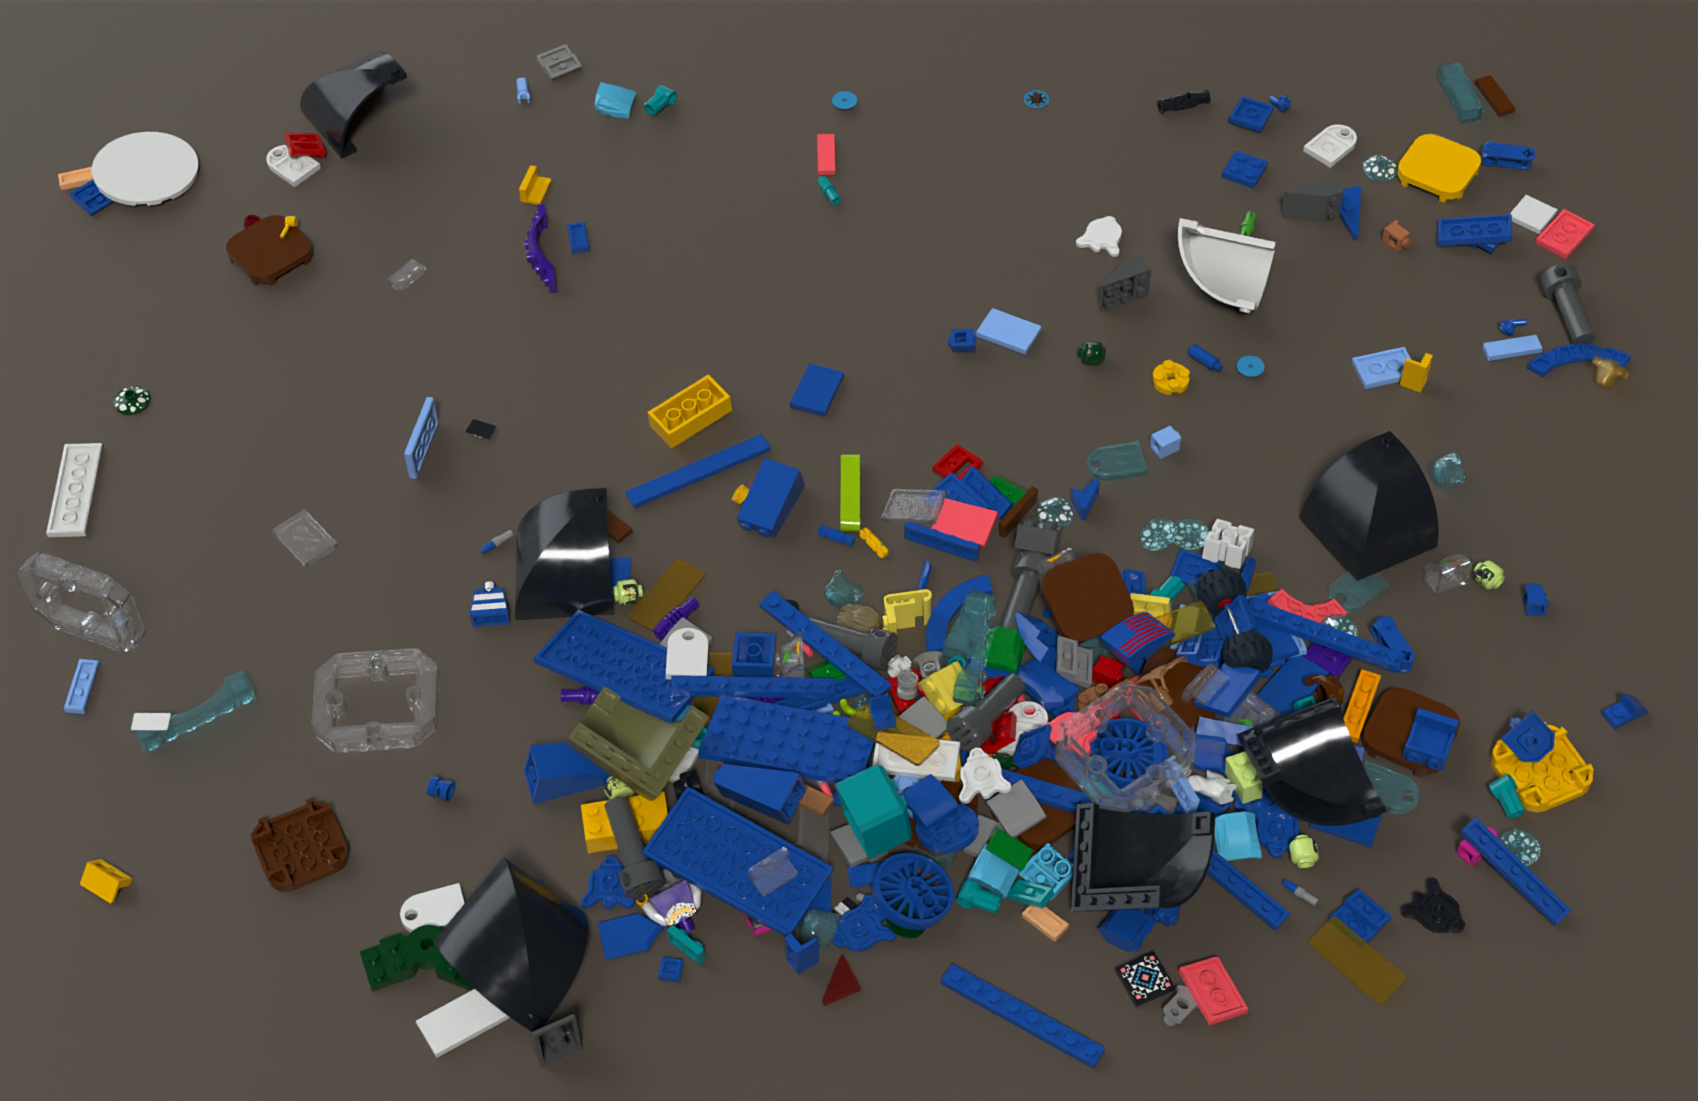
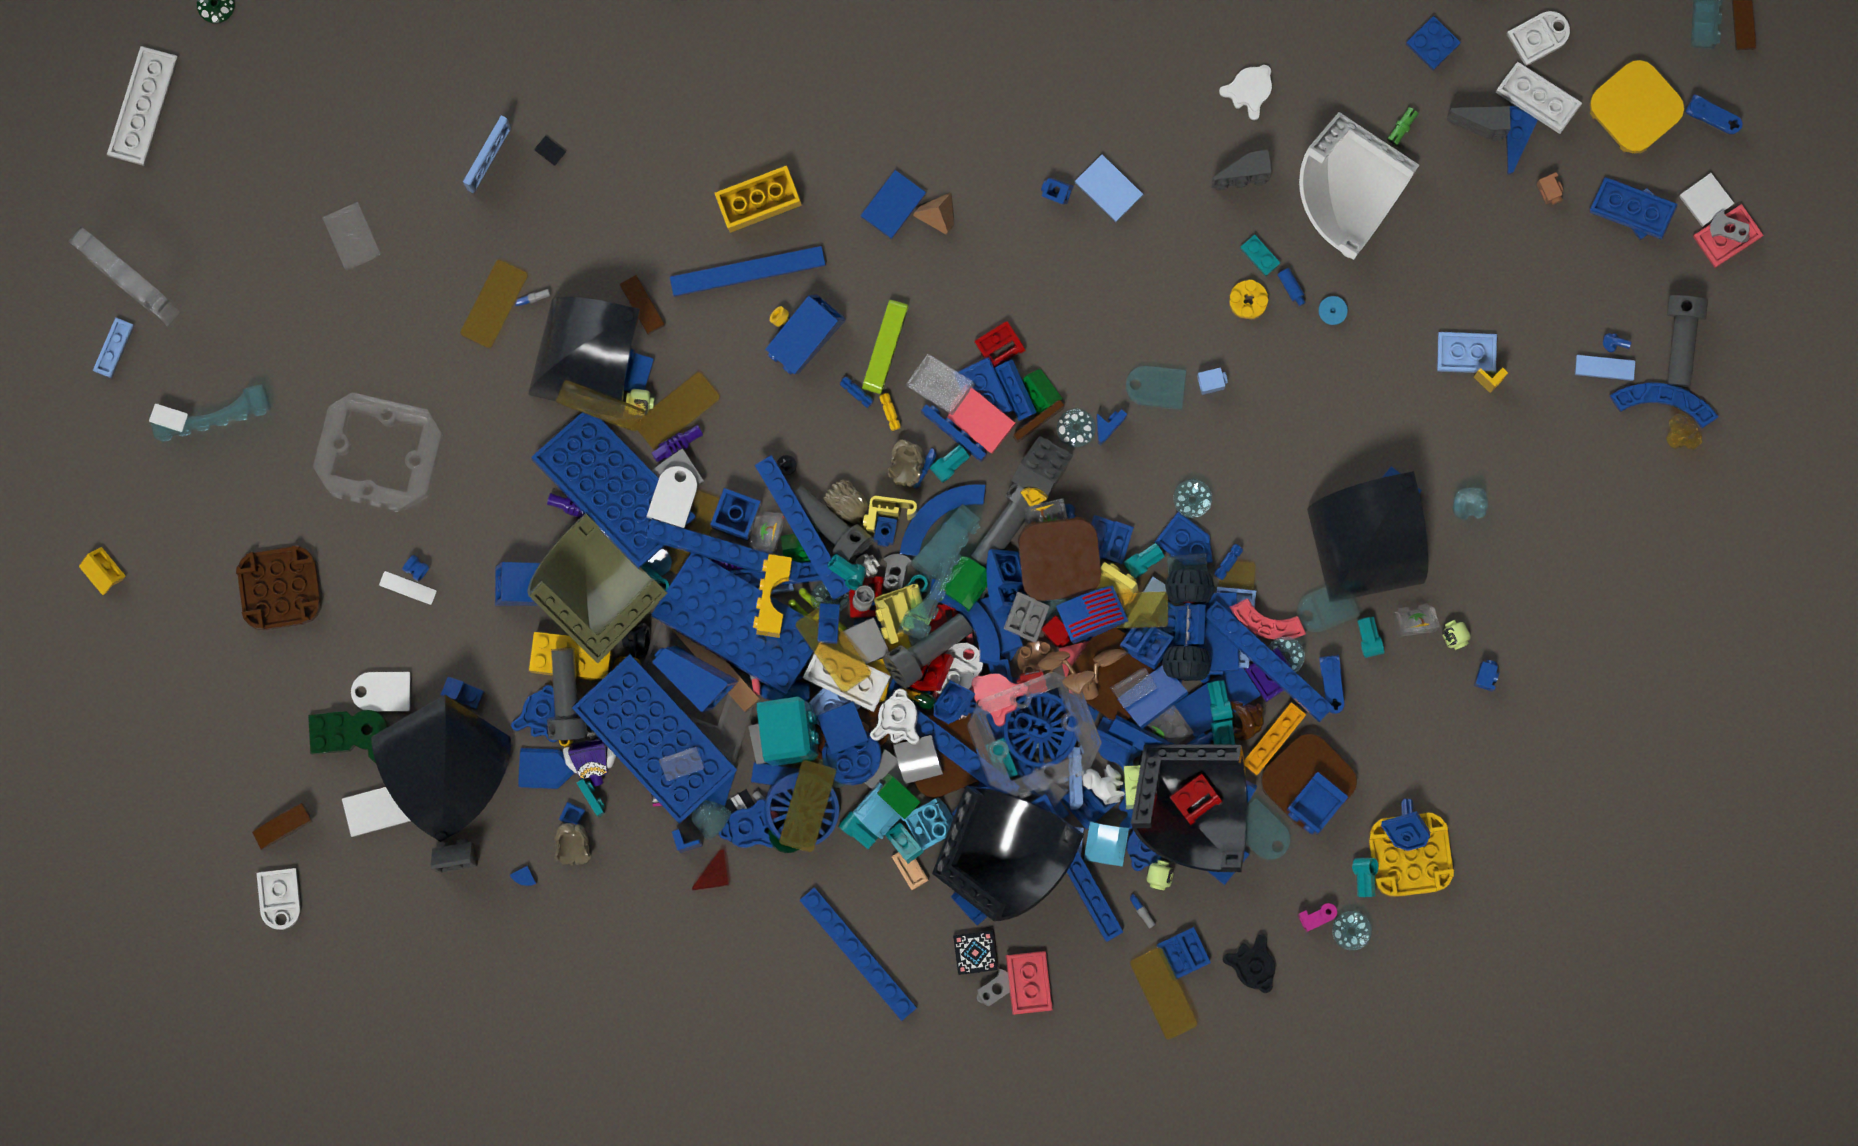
camera: 20 degrees right, 30 degrees up
(356, 1064) = (282, 826): none -> reddish brown slope
(437, 812) = (407, 587): none -> white sticker
(460, 557) = (494, 304): none -> clear yellow piece
(489, 607) = (507, 375): blue torso -> none
(590, 598) = (600, 405): none -> clear yellow piece
(636, 1042) = (523, 877): none -> blue tile
(680, 992) = (572, 844): none -> dark tan hair
(820, 720) = (777, 572): none -> yellow arch
(840, 591) = (840, 464): clear light blue hair -> none
(860, 382) = (937, 213): none -> medium nougat slope
(881, 665) = (852, 574): none -> teal piece
(905, 572) = (907, 464): none -> dark tan hair
(906, 634) = (891, 525): none -> blue brick
(919, 878) = (807, 806): none -> clear yellow piece
(945, 569) = (946, 466): none -> teal piece
(1041, 551) = (1033, 496): none -> yellow tile
(1092, 353) = (1180, 247): dark green head -> none
(1158, 534) = (1158, 483): clear light blue dish -> none
(1166, 345) = (1260, 255): none -> teal plate
(1228, 543) = (1211, 526): white brick -> none
(1293, 687) = (1219, 705): none -> teal piece
(1302, 767) = (1193, 792): none -> red plate
(1357, 179) = (1538, 97): none -> white tile
(1379, 167) = (1567, 82): clear light blue dish -> none
(1411, 602) = (1371, 642): none -> teal piece
(1515, 871) = (1335, 956): blue plate -> none
(1553, 223) = (1721, 220): none -> light grey piece
(1625, 711) = (1515, 819): blue slope -> none

